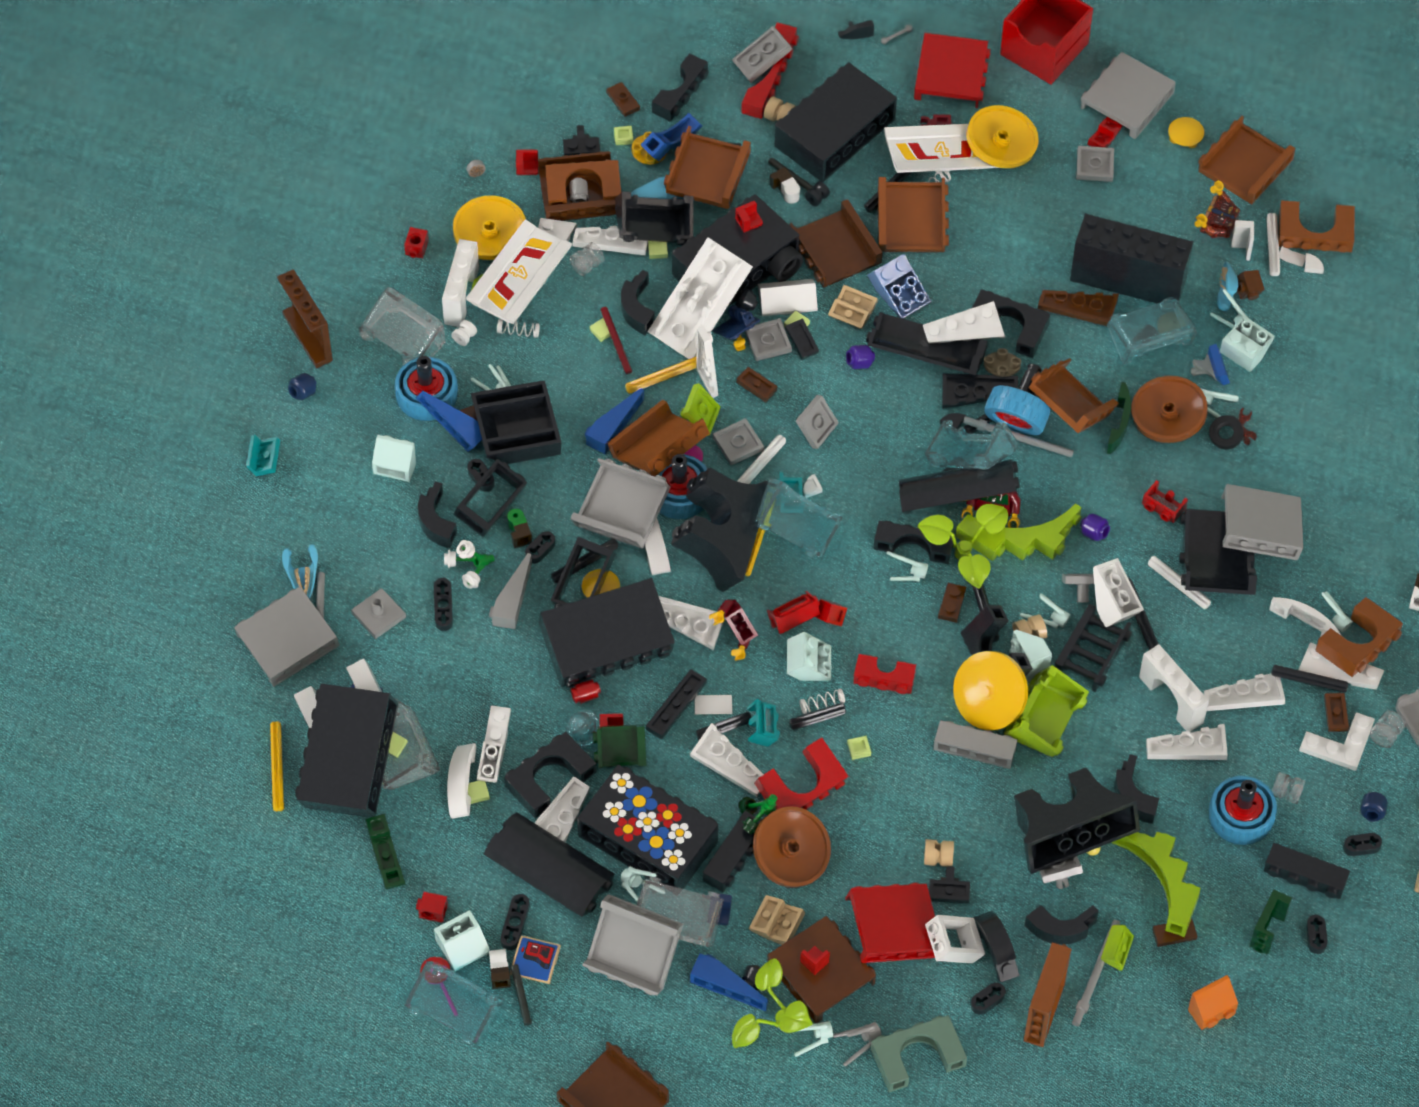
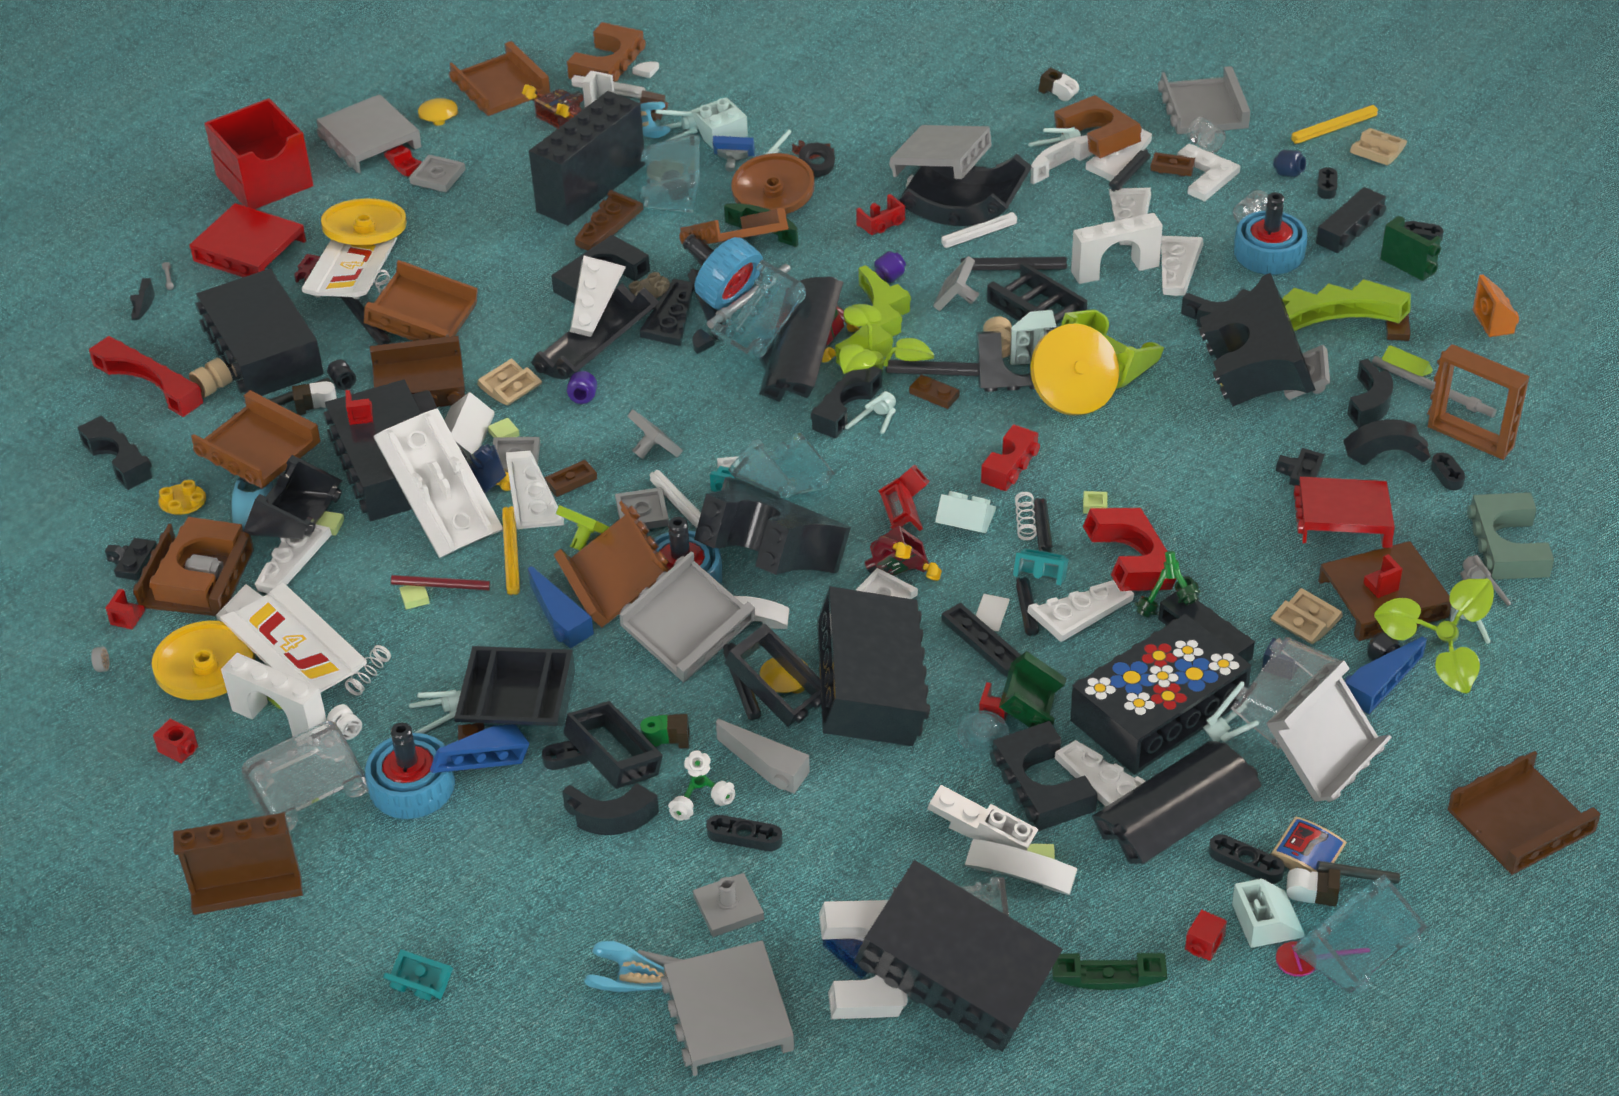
camera: 70 degrees left, 15 degrees down
(277, 766) = (927, 1068): yellow axle -> none
(302, 386) = (330, 908): dark blue head -> none
(394, 458) = (503, 827): light aqua slope -> none
(538, 546) = (698, 721): black beam -> none
(585, 691) = (937, 722): red brick -> none
(589, 257) = (308, 581): clear wheel -> none
(623, 99) = (92, 507): reddish brown plate -> none
(623, 135) = (145, 519): yellowish green tile -> none
(634, 313) = (401, 559): black arch -> none
(661, 142) = (186, 466): blue arch -> none
(762, 54) = (123, 371): light grey tile -> none
(792, 847) = (1222, 572): dark orange dish -> none
(802, 339) = (531, 427): black tile -> none
(899, 287) = (500, 339): medium blue slope -> none
(938, 853) = (1258, 463): tan wheel -> none
(968, 935) = (1373, 466): white window -> none
(975, 744) = (1126, 409): light grey brick -> none
(1059, 616) = (985, 313): light aqua plant -> none
(1114, 593) = (1002, 263): white slope -> none
(1291, 256) = (630, 80): white sticker -> none

